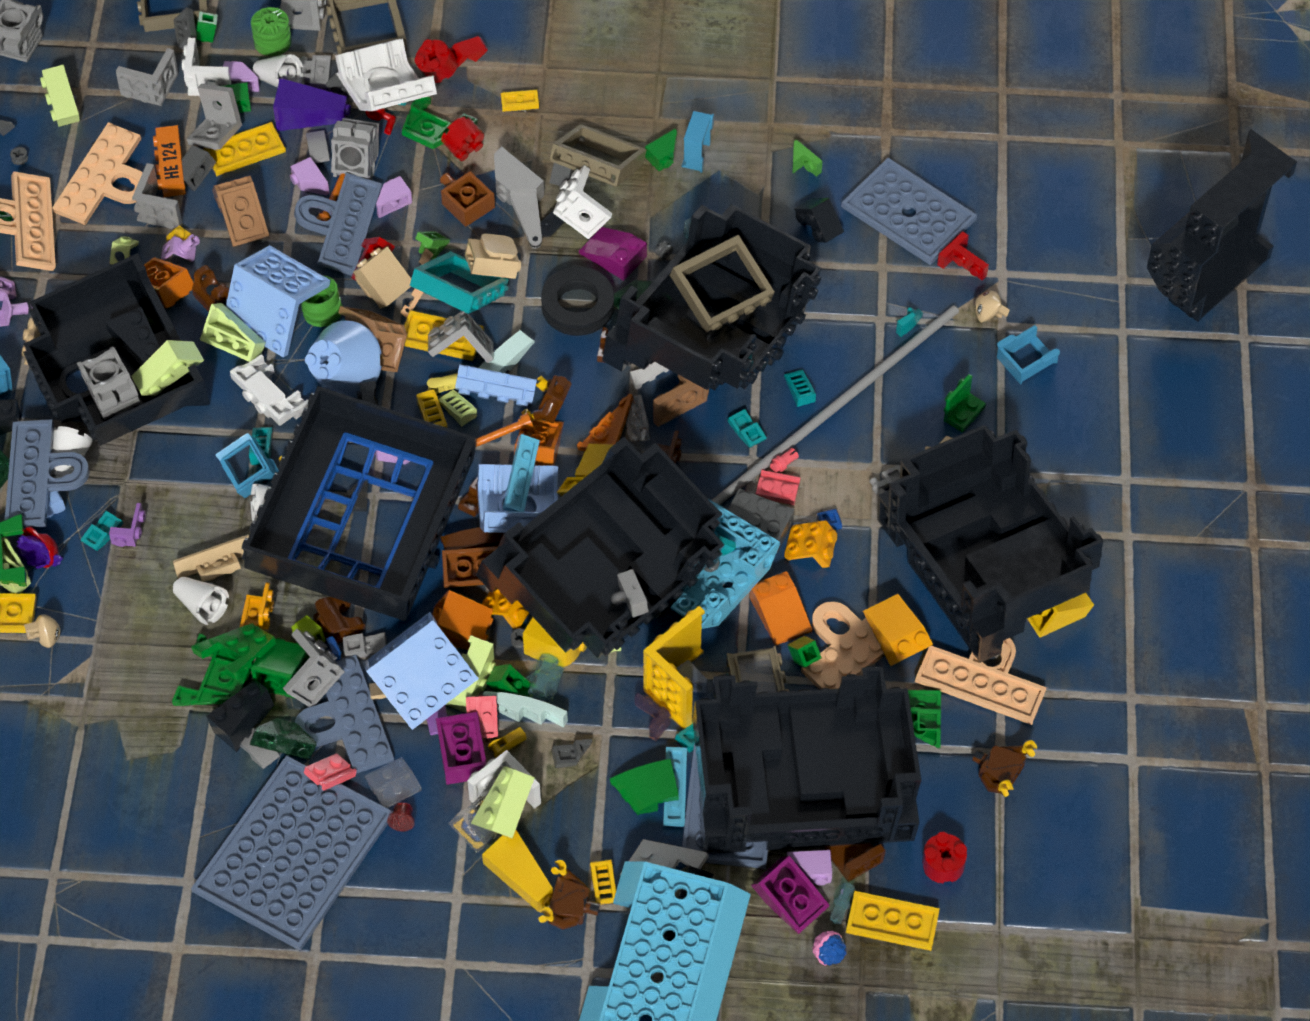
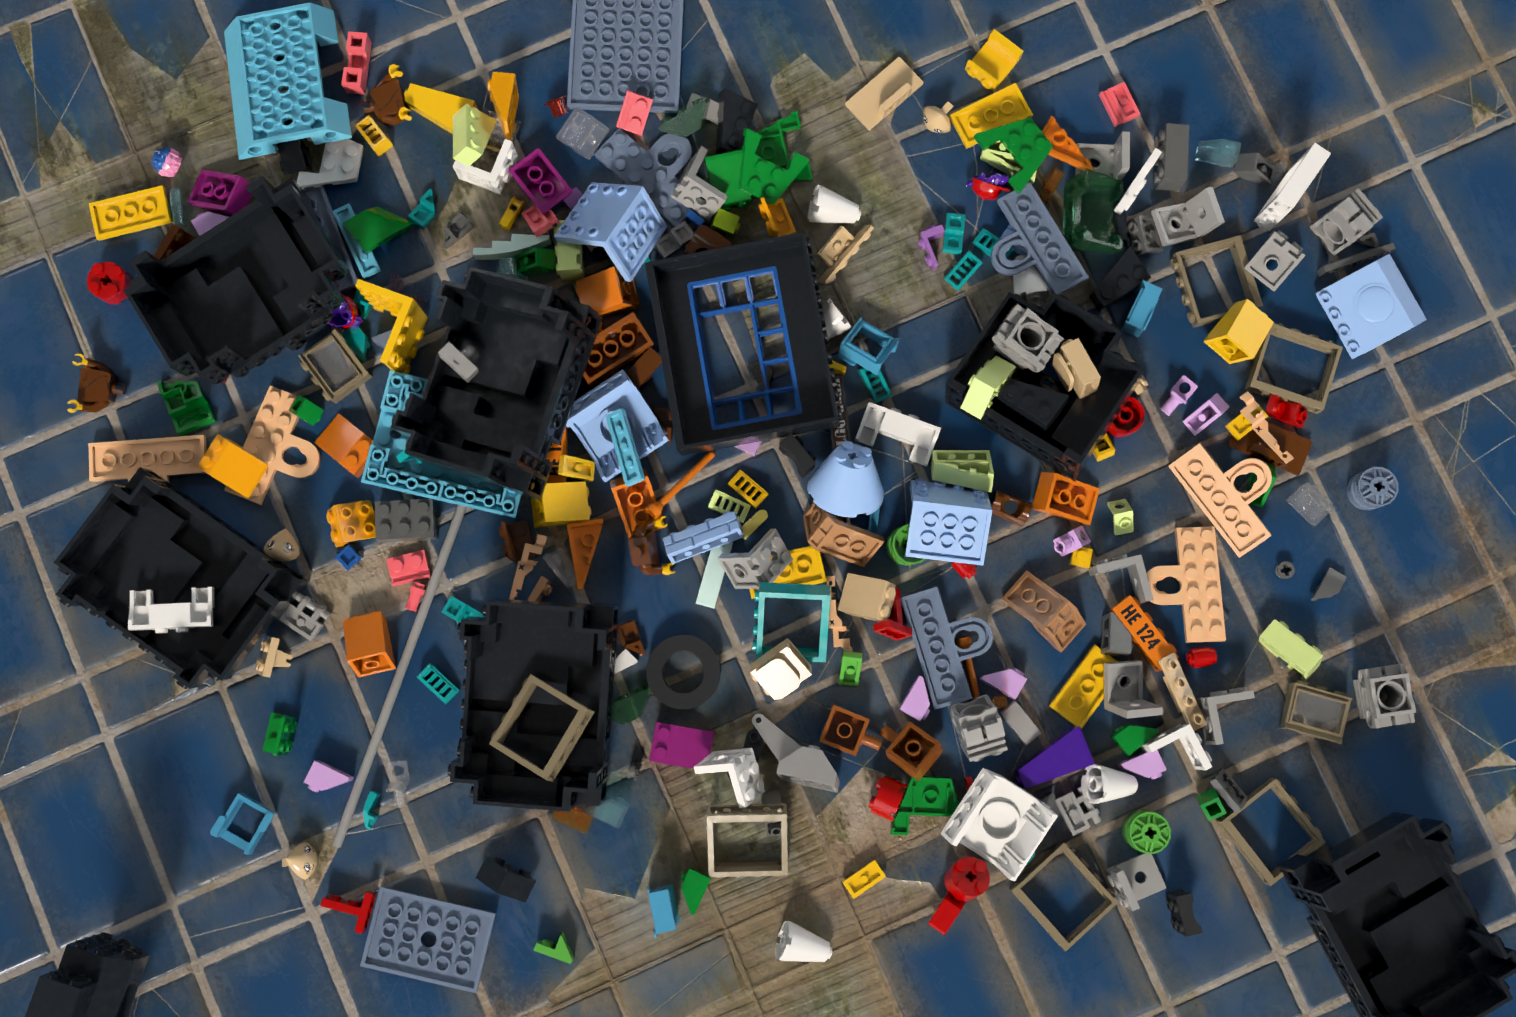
camera: 150 degrees right, 25 degrees up
(67, 495) = (992, 237): none -> teal slope
(76, 50) = (1315, 711): none -> window
(76, 678) = (884, 93): none -> tan bracket
(82, 340) = (1076, 368): none -> tan brick
(107, 492) = (973, 258): none -> teal slope
(136, 124) = (1201, 657): none -> red brick
(172, 102) = (1181, 691): none -> tan bracket
(325, 161) = (999, 701): none -> clear orange bar
(420, 159) = (911, 749): none -> dark orange brick
(452, 832) = (505, 100): none -> light orange slope
(589, 943) = (355, 75): none -> coral arch
(592, 786) = (424, 211): none -> teal slope
(601, 77) = (801, 945): none -> white cone
(682, 434) = (520, 574): none -> light nougat piece
(845, 439) = (368, 644): none -> orange slope
(875, 327) = (398, 783): none -> clear bracket
(885, 545) = (282, 547): none -> tan piece
(936, 357) = (323, 777): none -> lavender slope
(1012, 514) = (178, 616): none -> white bracket

